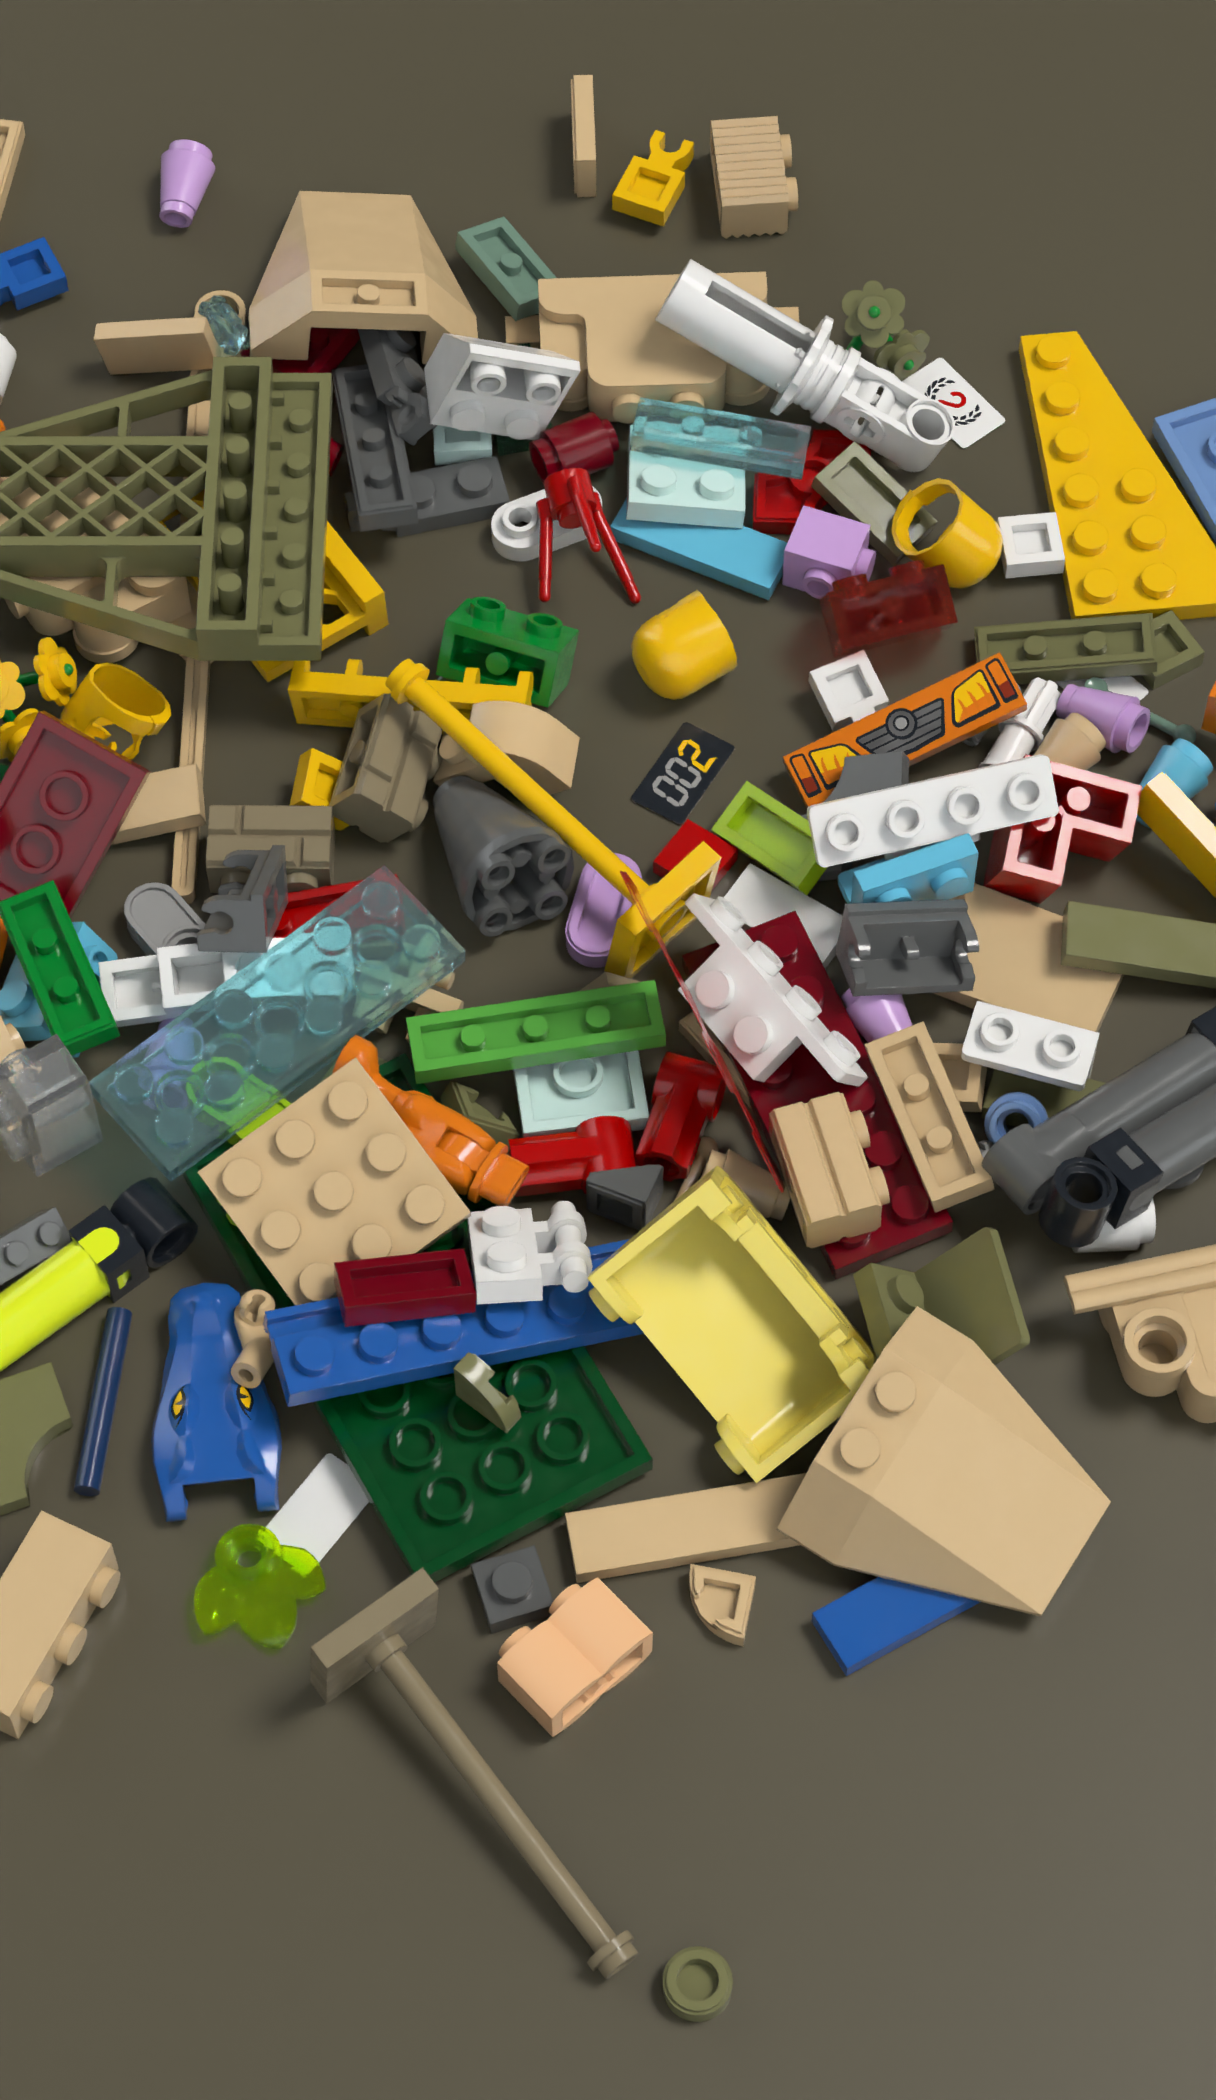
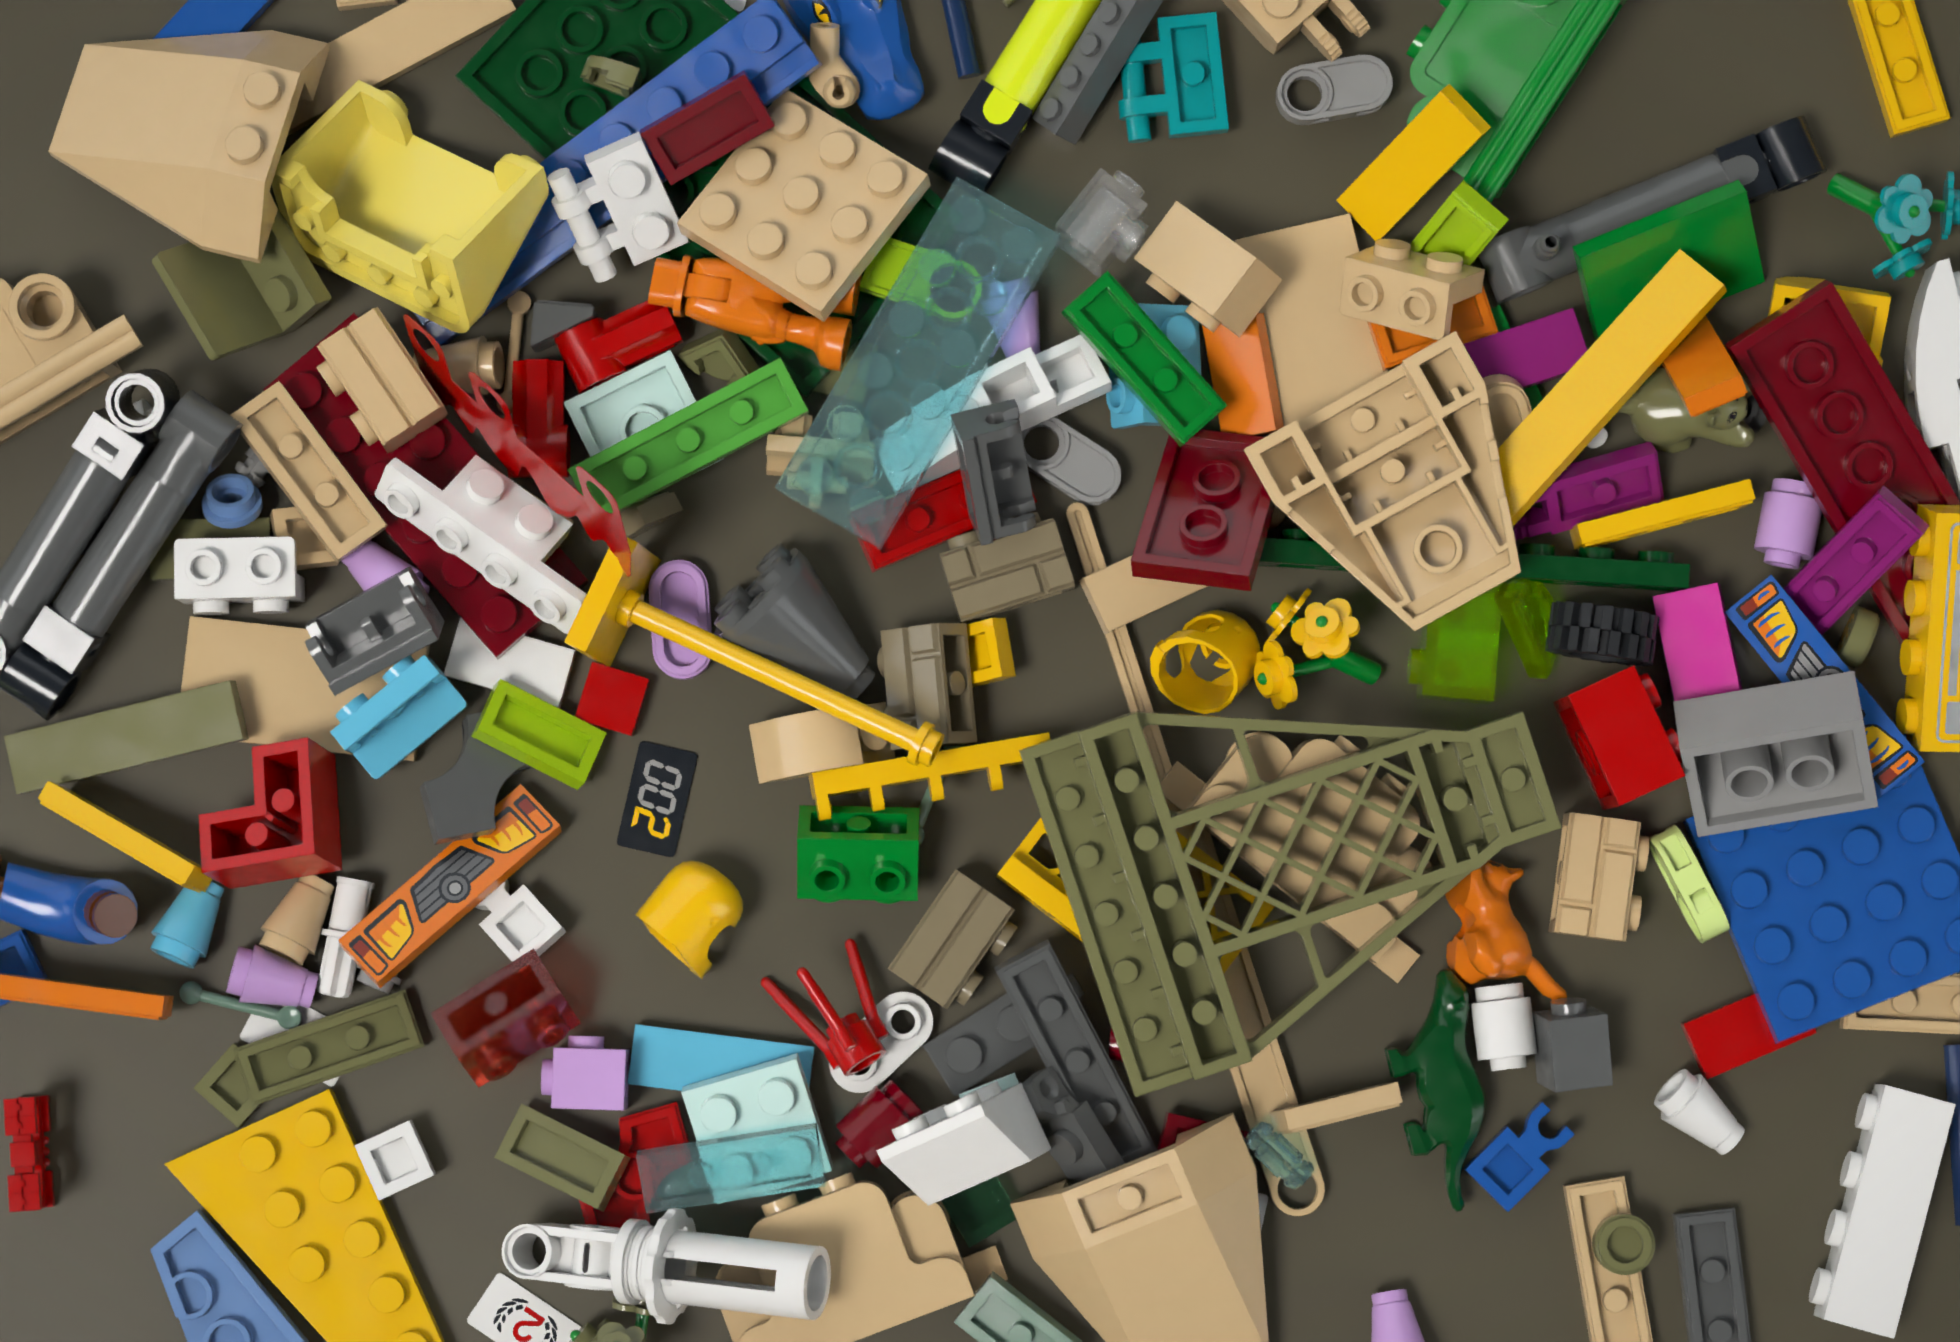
camera: 155 degrees right, 25 degrees up
(52, 347) = (1444, 1082): none -> dark green animal
(452, 563) = (953, 940): none -> dark tan brick
(932, 811) = (385, 762): white bracket -> none
(967, 546) = (451, 1143): yellow helmet -> none

